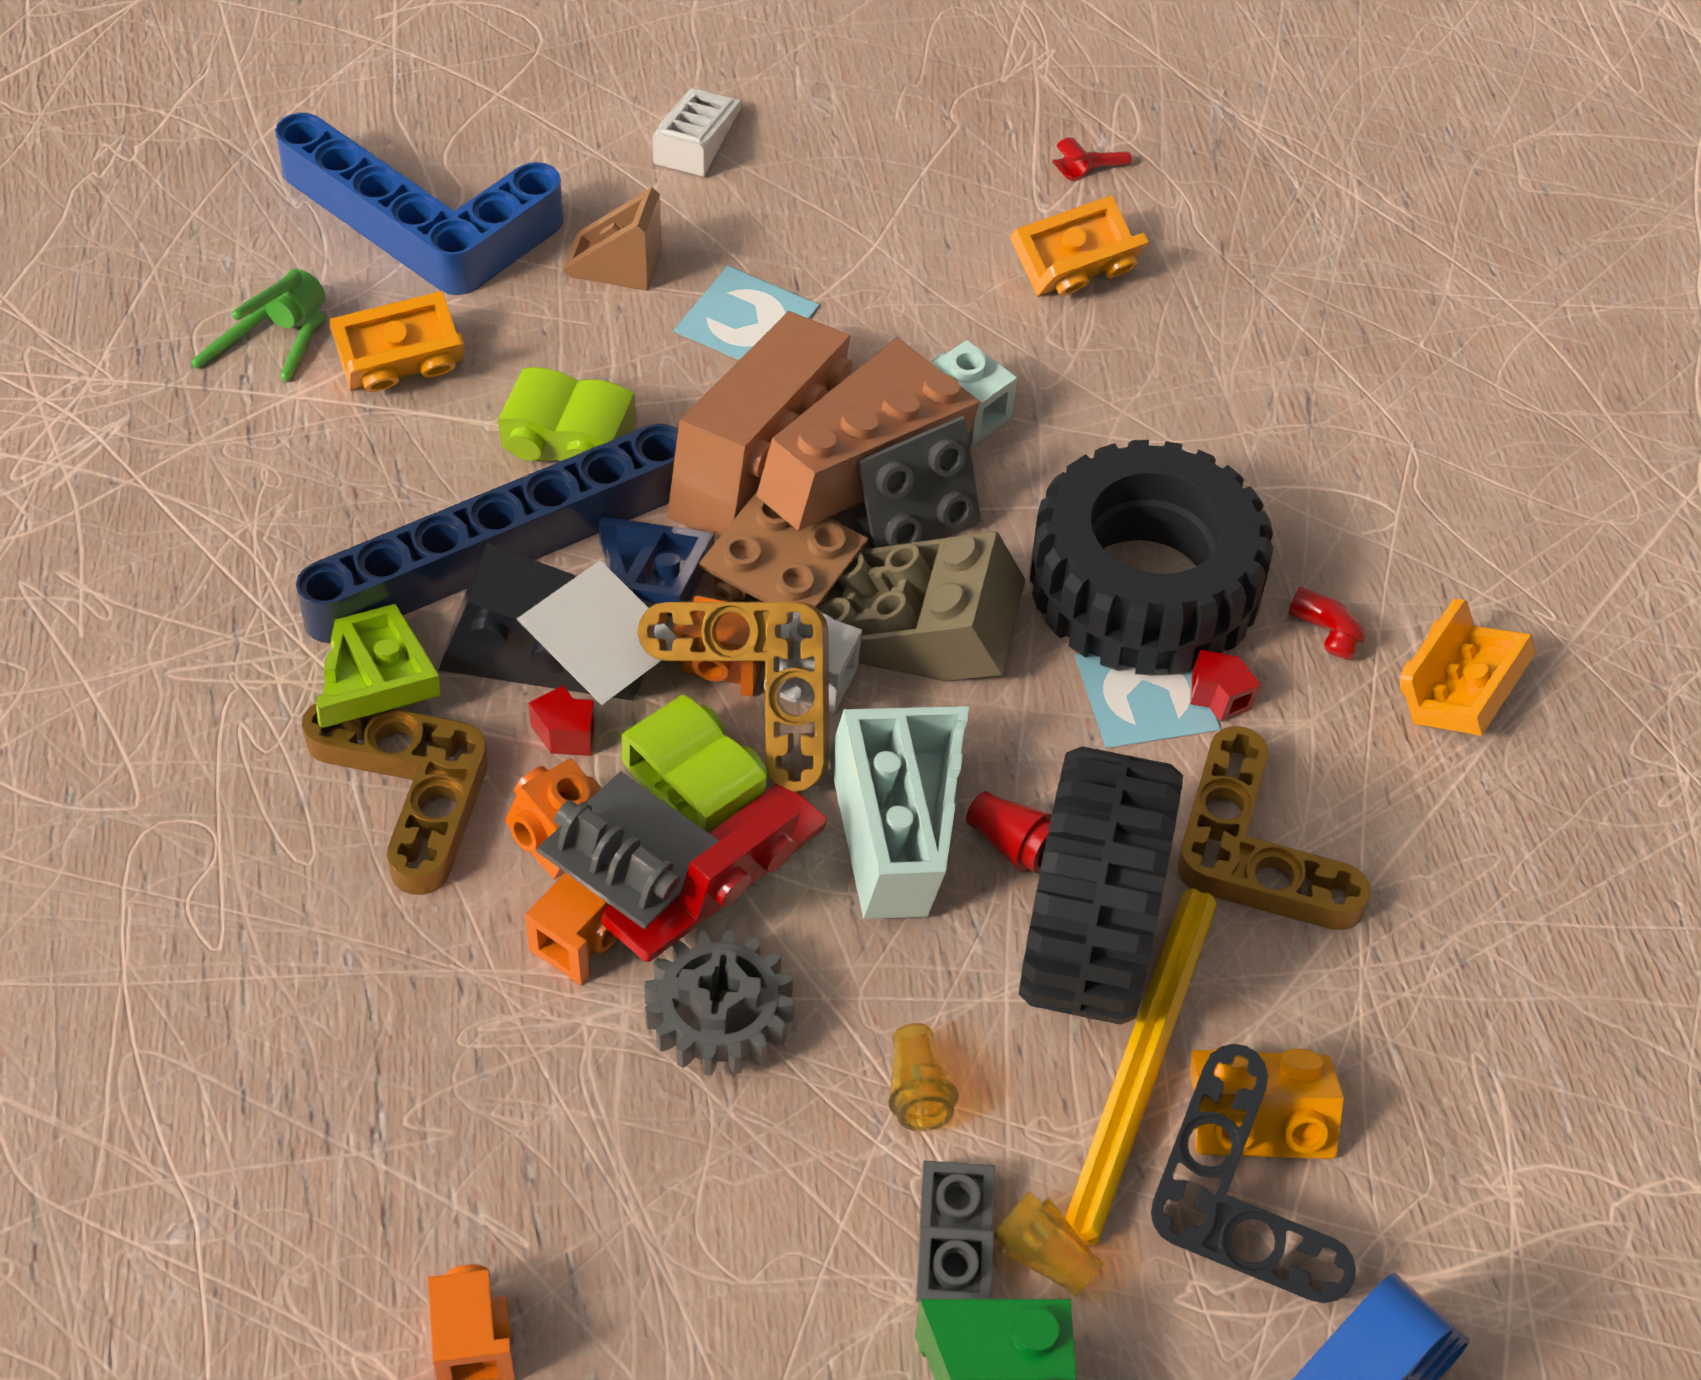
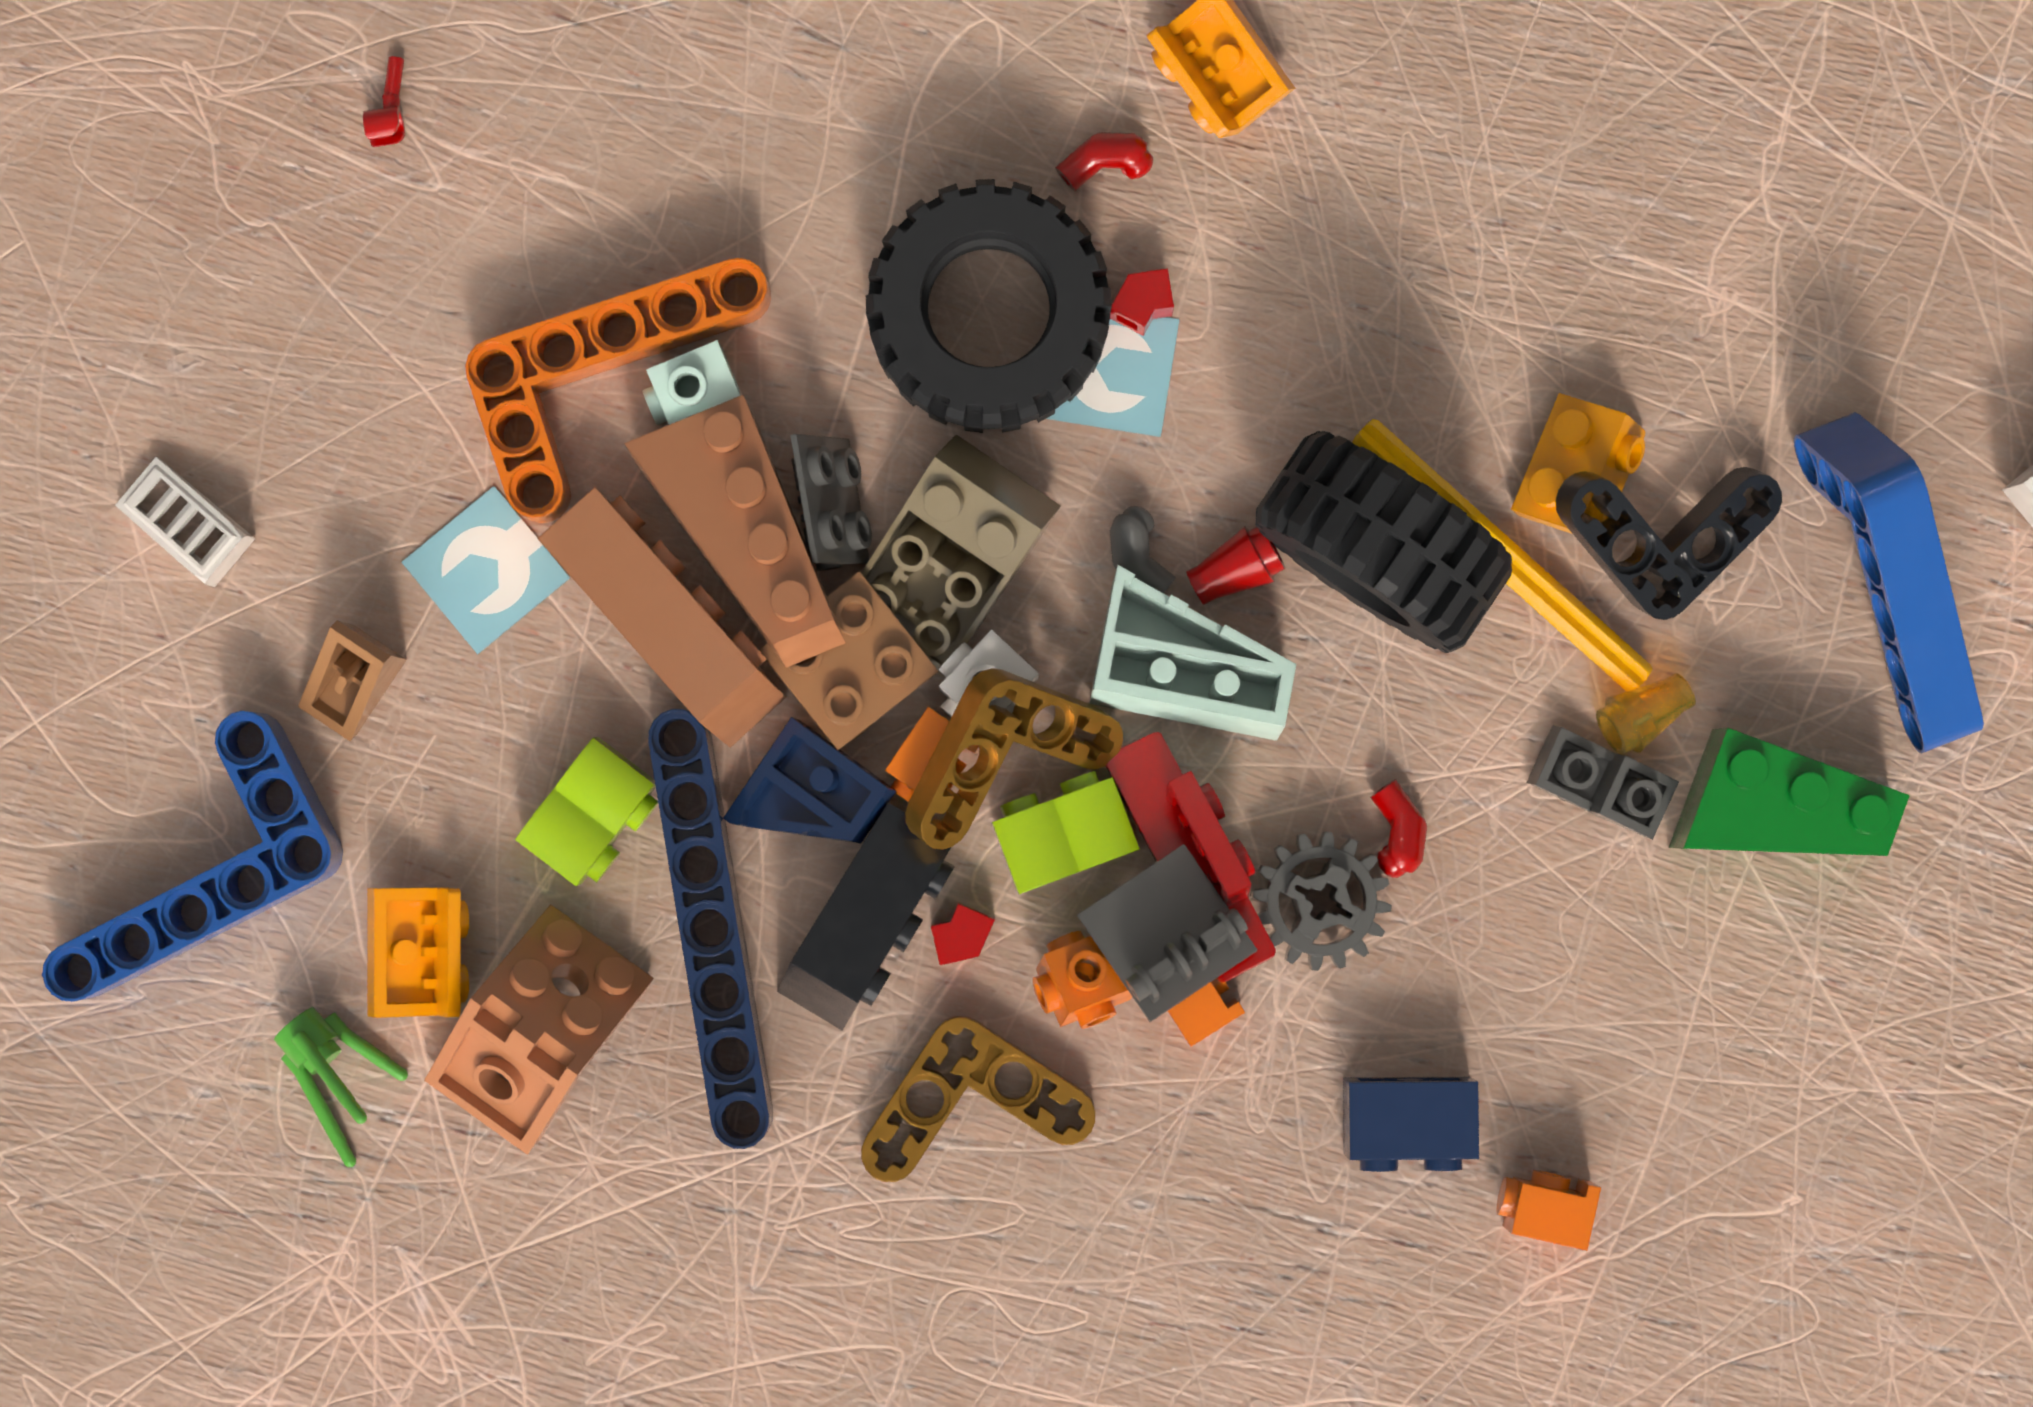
camera: 70 degrees left, 35 degrees up
(357, 410) = (533, 1030): none -> nougat bracket
(373, 667) = (843, 1098): lime wing -> none
(521, 1157) = (1410, 1121): none -> dark blue brick
(594, 632) = (905, 885): white sticker -> none
(821, 1063) = (1407, 831): none -> red arm
(920, 1082) = (1454, 755): clear yellow cone -> none
(954, 301) = (591, 357): none -> orange beam
(987, 745) = (1132, 551): none -> dark grey arm
(1077, 245) = (532, 183): light orange bracket -> none
(1243, 856) = (1335, 368): pearl gold beam -> none

